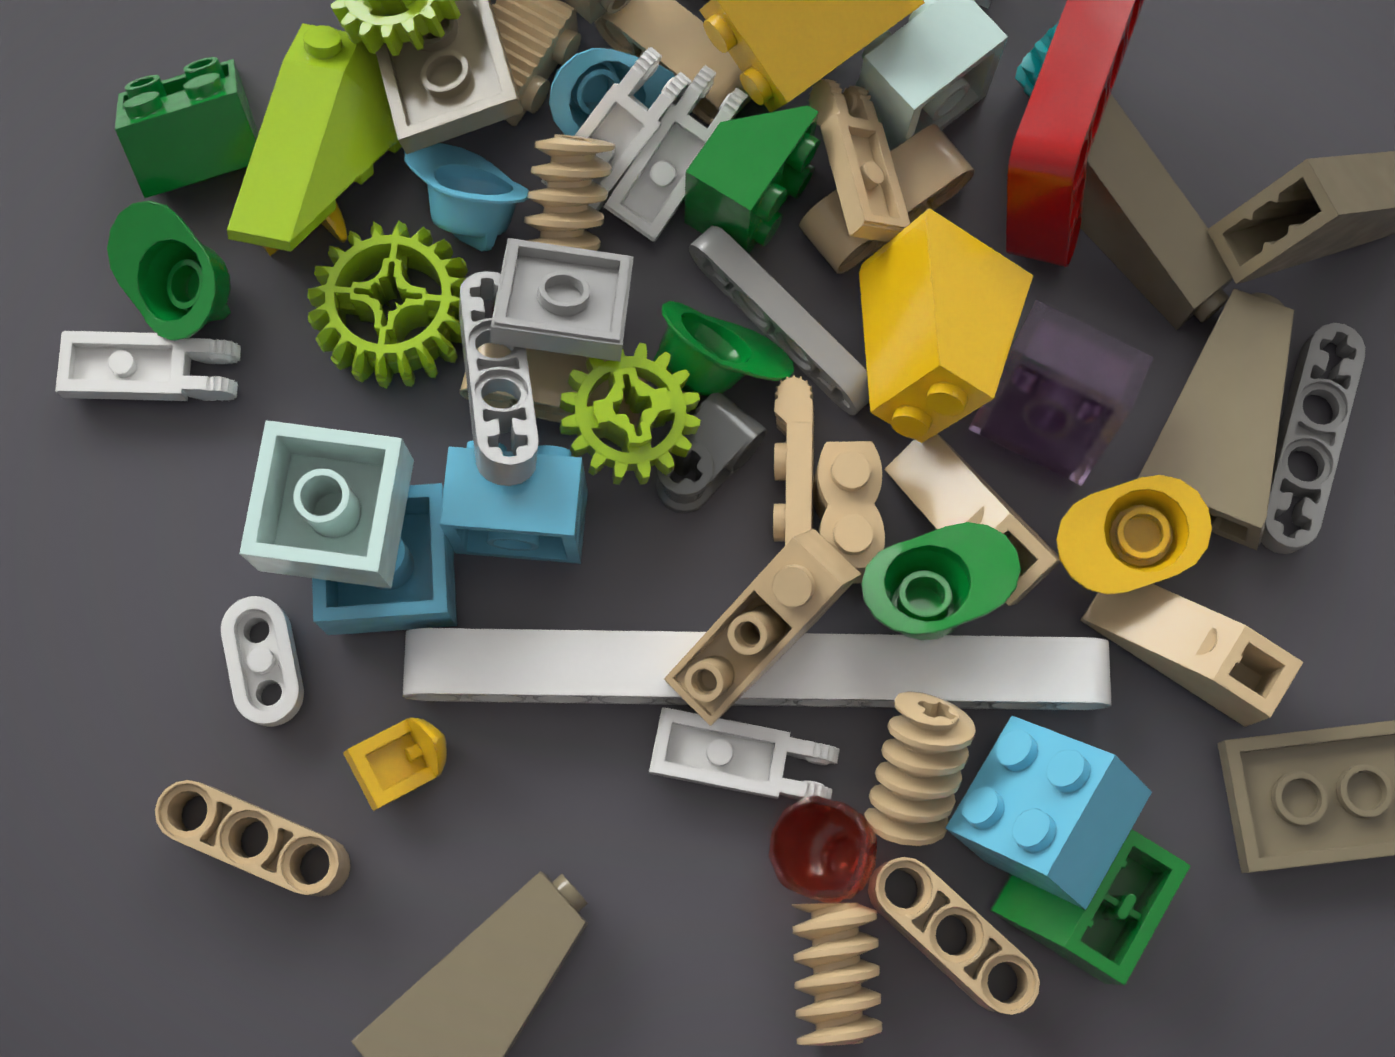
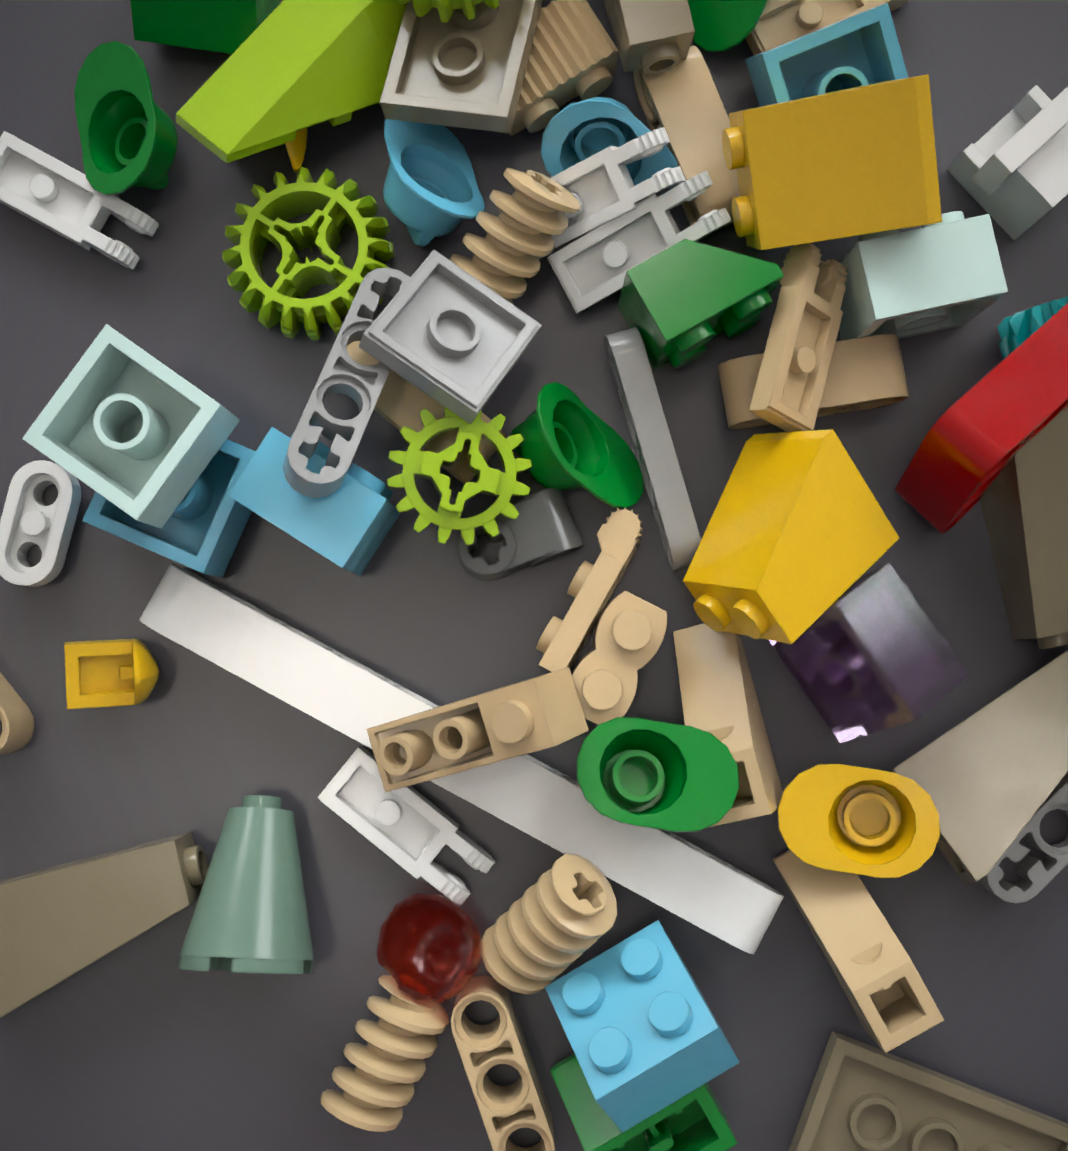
camera: 30 degrees right, 10 degrees up
(640, 893) = (252, 897): none -> sand green cone

